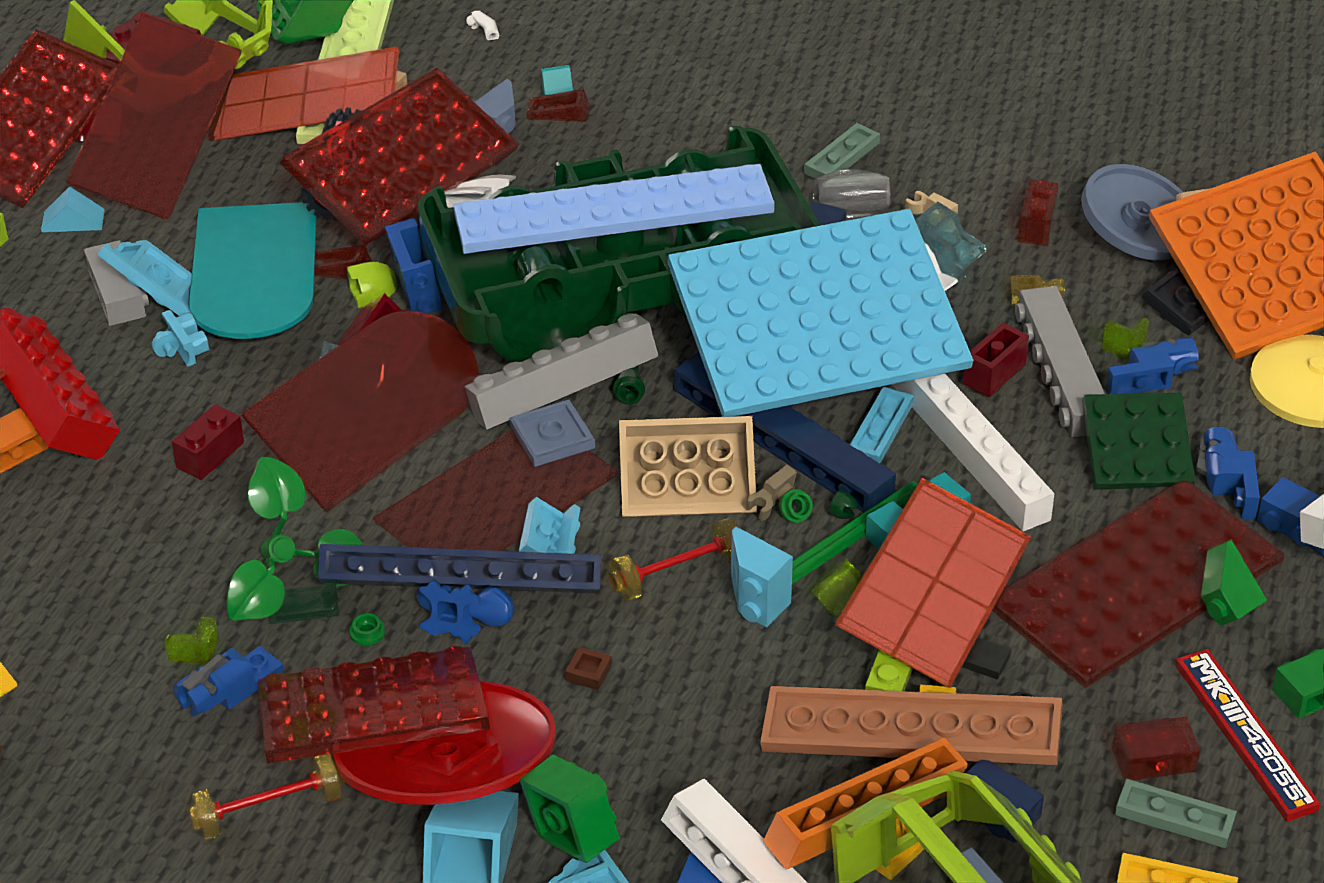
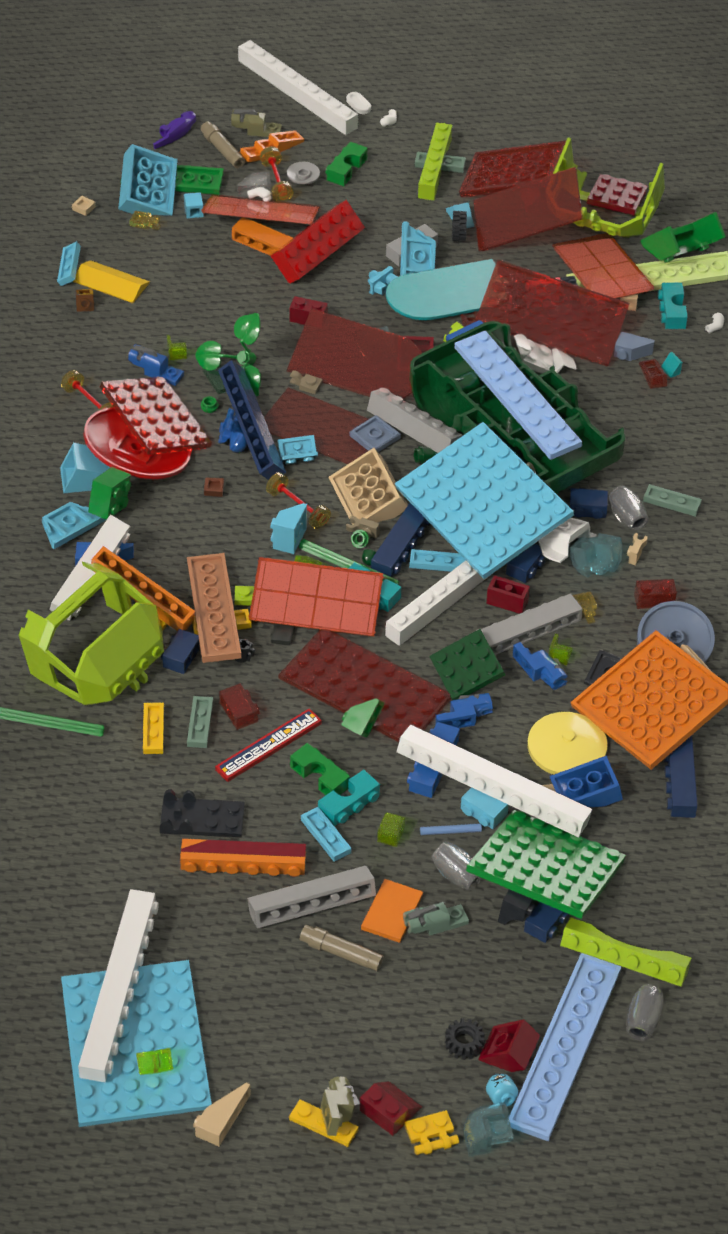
camera: 70 degrees right, 5 degrees up
(119, 203) = (459, 226): none -> black tyre
(377, 487) = (307, 383): none -> dark tan plate
(451, 55) = (674, 314): none -> teal arch

